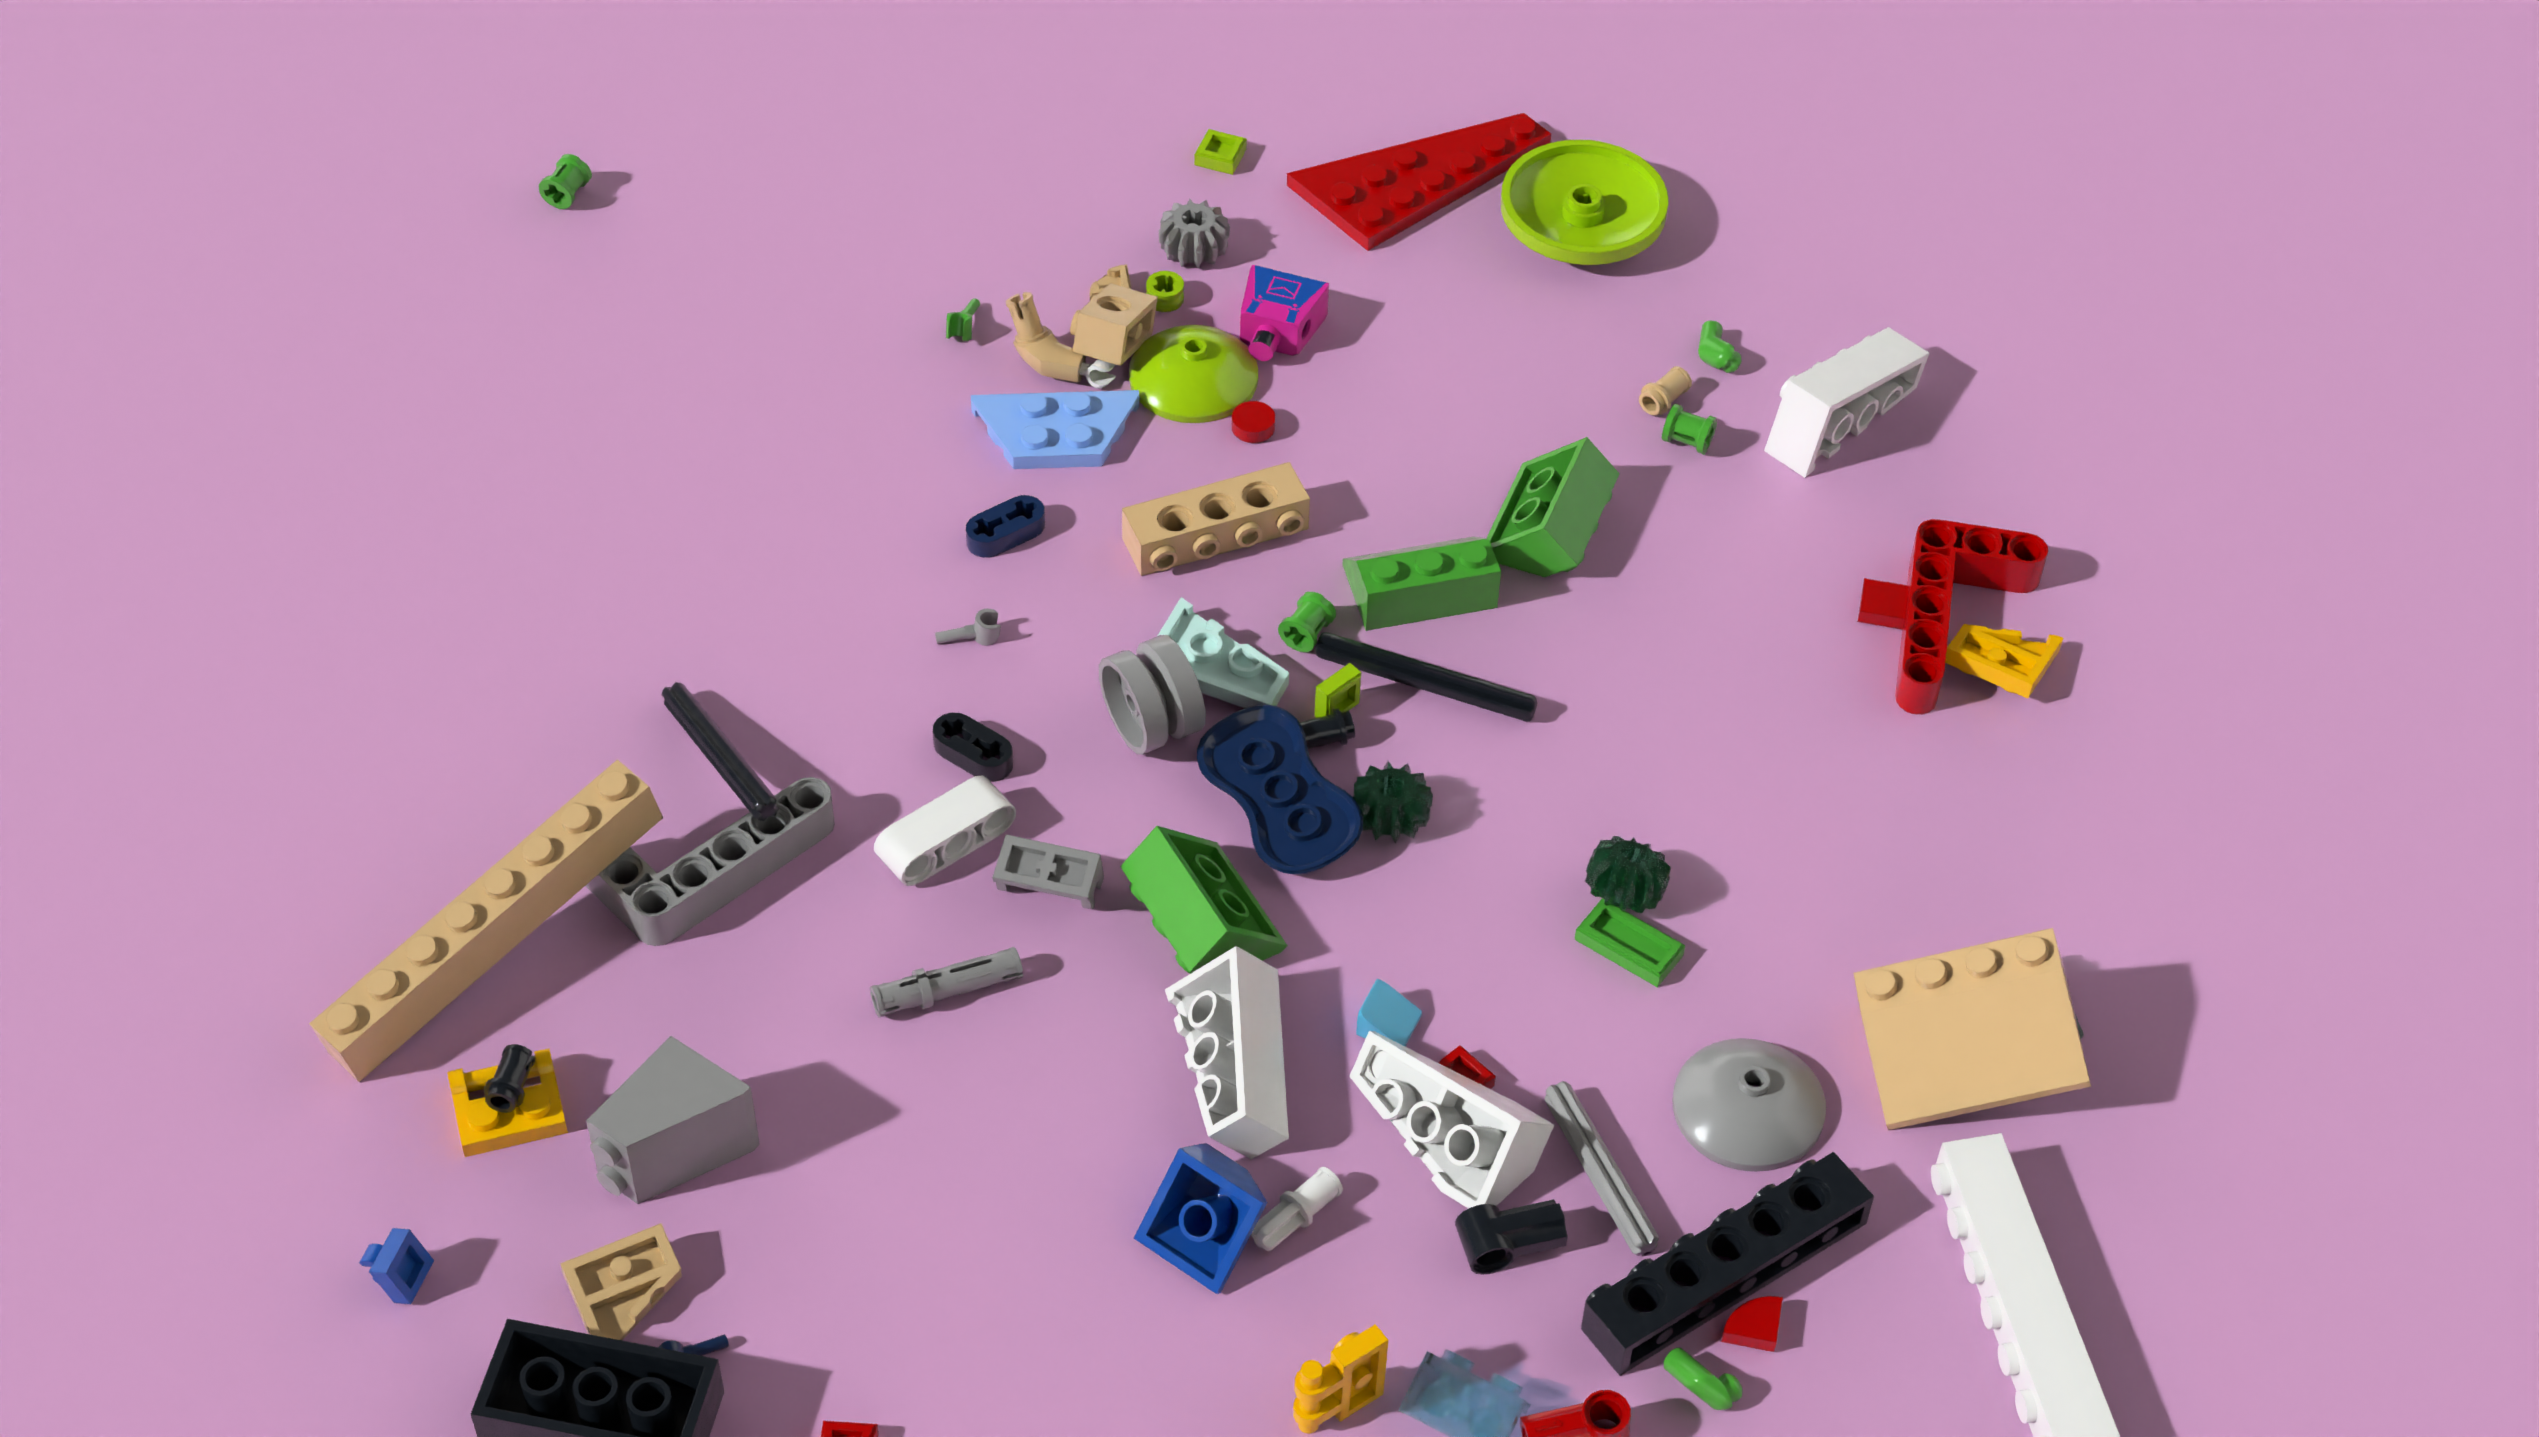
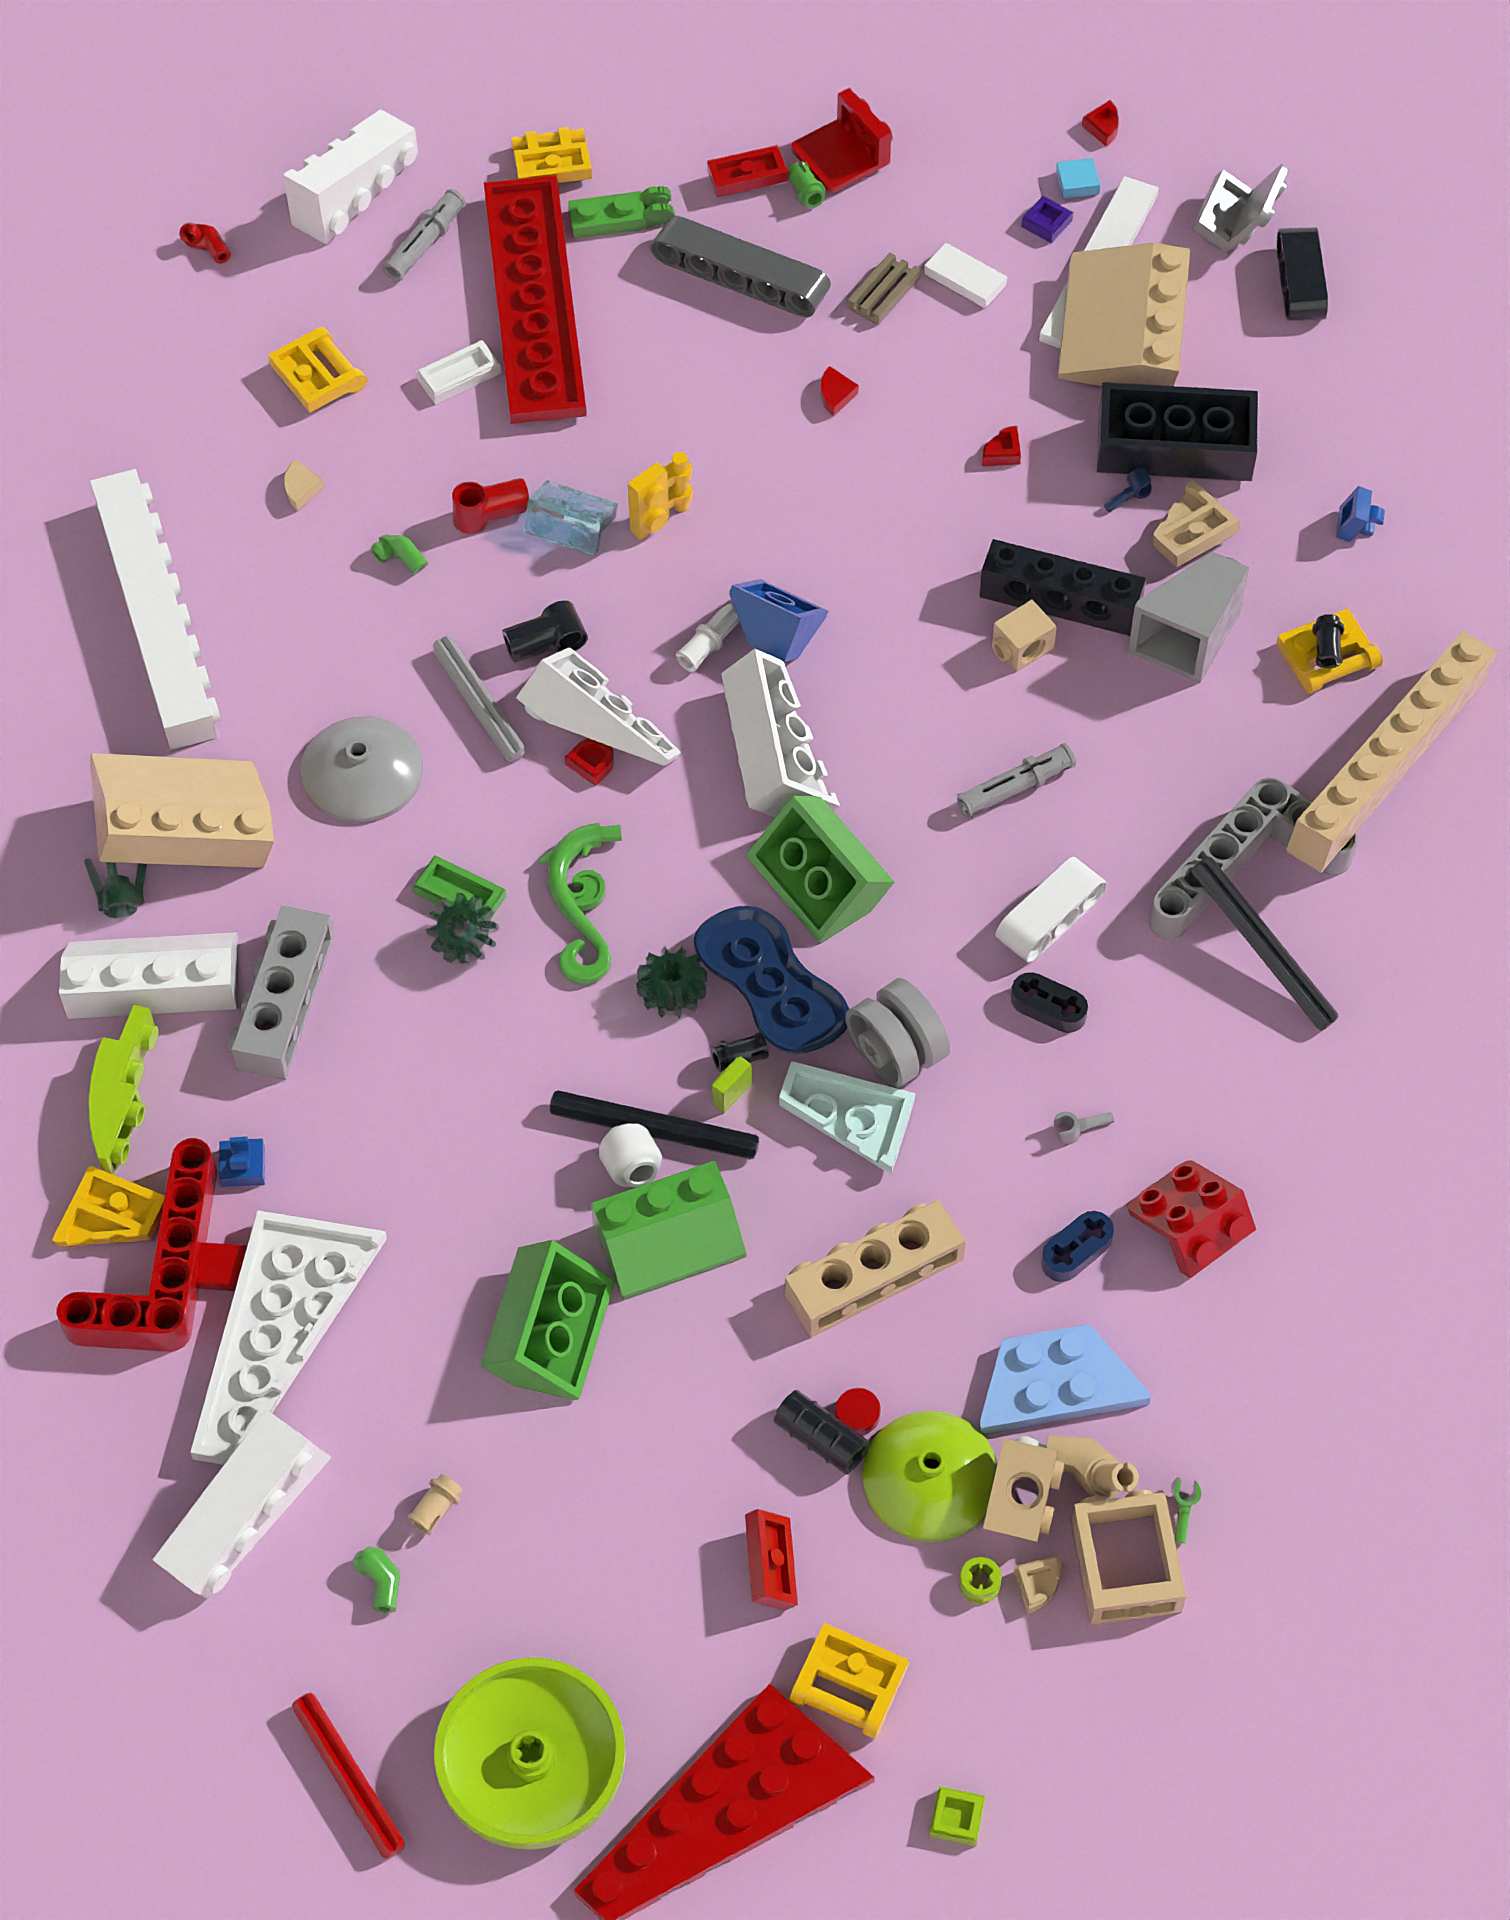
camera: 175 degrees right, 10 degrees up
(823, 1205) = (1061, 586): none -> black brick
(885, 533) = (1196, 1214): none -> red bracket
(891, 1152) = (1023, 636): none -> tan brick
(1028, 254) = (1136, 1600): none -> tan window
(1049, 869) = (953, 875): light grey hinge -> none
(1194, 233) = (963, 1673): light grey gear -> none
(1281, 312) = (851, 1550): dark pink torso -> none
(1292, 399) = (821, 1431): none -> black axle
(1295, 236) = (855, 1666): none -> yellow plate
(1304, 625) = (770, 1162): bright green bush -> none
(1354, 315) = (771, 1559): none -> red plate
(1387, 1014) = (655, 797): medium azure slope -> none
(1454, 639) = (630, 1155): none -> white head
(1494, 910) = (573, 904): none -> bright green plant
(1632, 1336) = (359, 632): black brick -> none
(1689, 429) = (409, 1450): bright green bush -> none
(1743, 225) = (348, 1775): none -> red axle
(1755, 1324) = (360, 598): red tile -> none
(1820, 552) = (283, 1304): none -> white wing
(1833, 842) = (273, 1050): none -> light grey brick
(1869, 692) = (241, 1162): none -> blue tile
(1988, 880) = (150, 972): none -> white slope
(2011, 760) = (114, 1094): none -> lime slope

